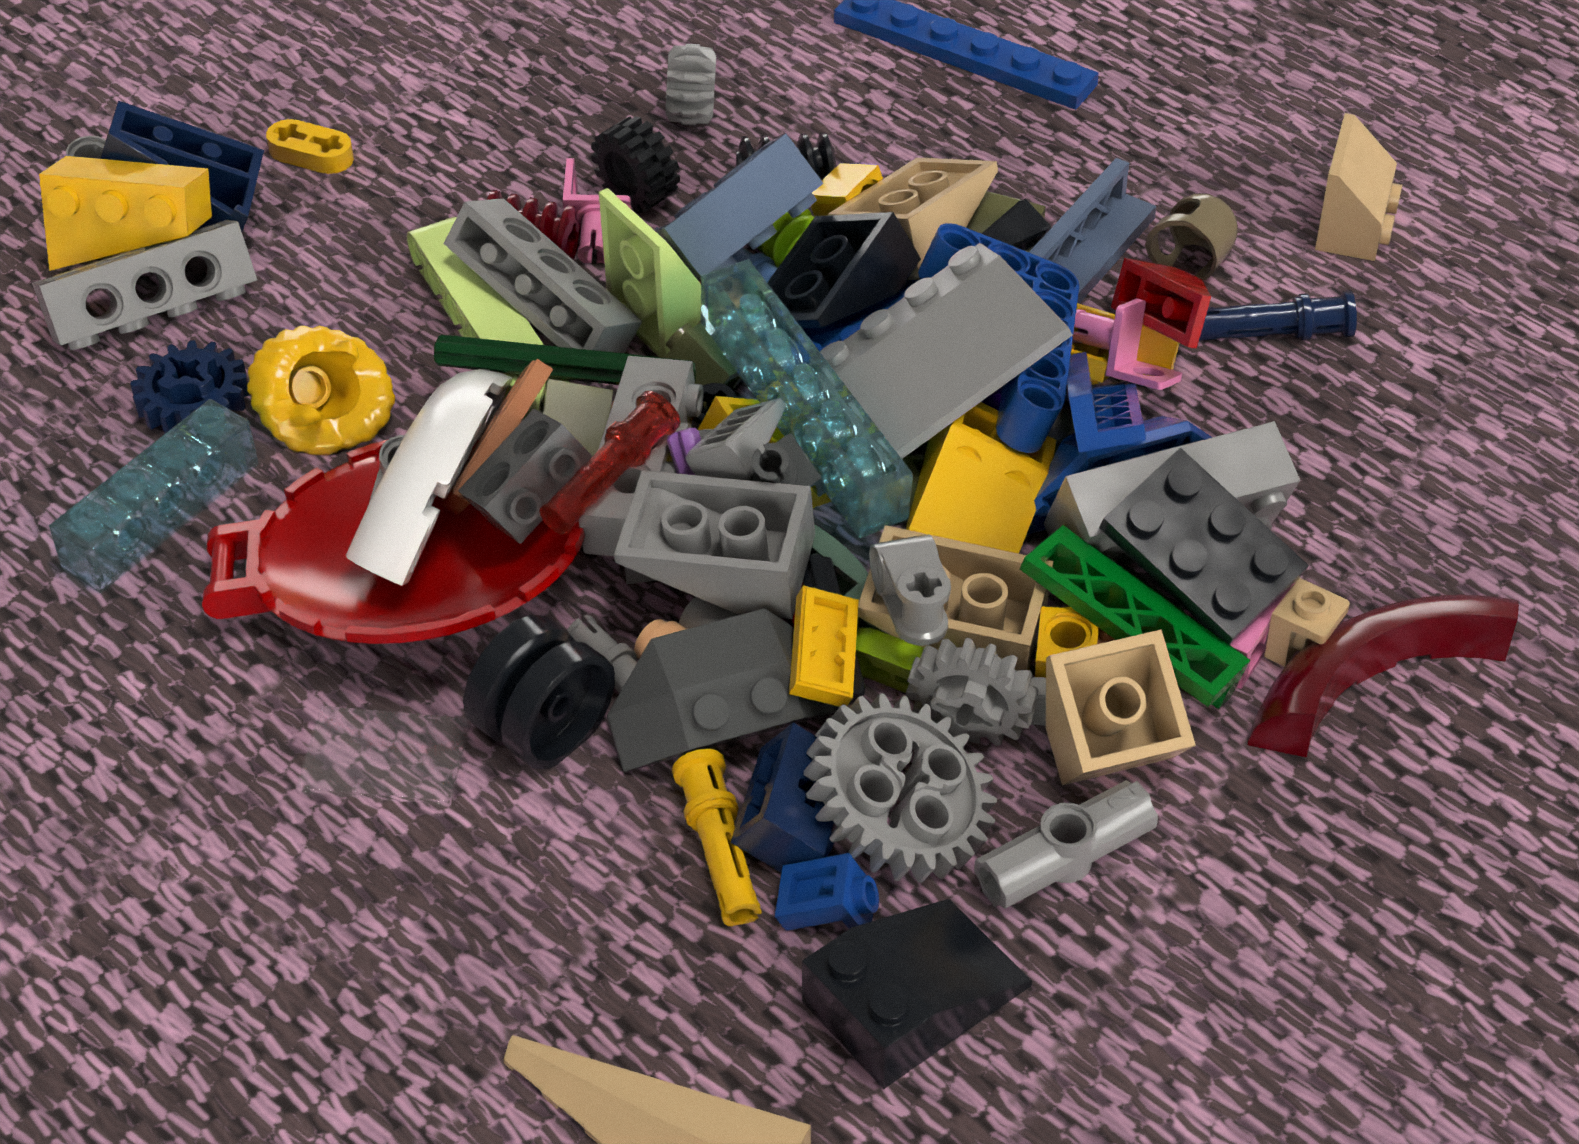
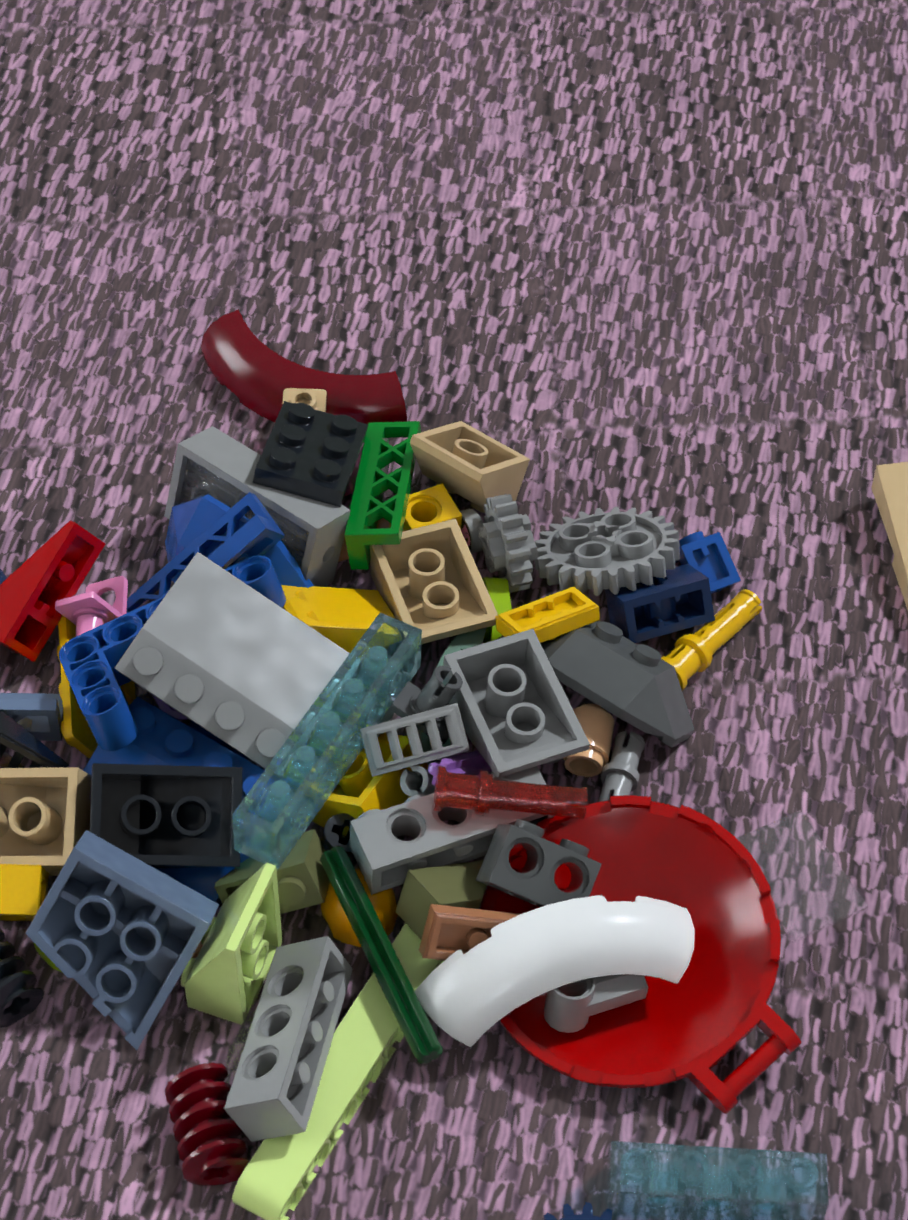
camera: 125 degrees left, 5 degrees up
(320, 390) = (515, 1143): yellow piece -> none
(538, 691) = (703, 766): black wheel -> none
(587, 215) = (149, 1087): bright pink bracket -> none
(635, 163) = (73, 1075): black tyre -> none
(907, 986) = (730, 492): black slope -> none
(912, 587) = (470, 576): light grey piece -> none
(1065, 843) = (574, 468): light grey piece -> none

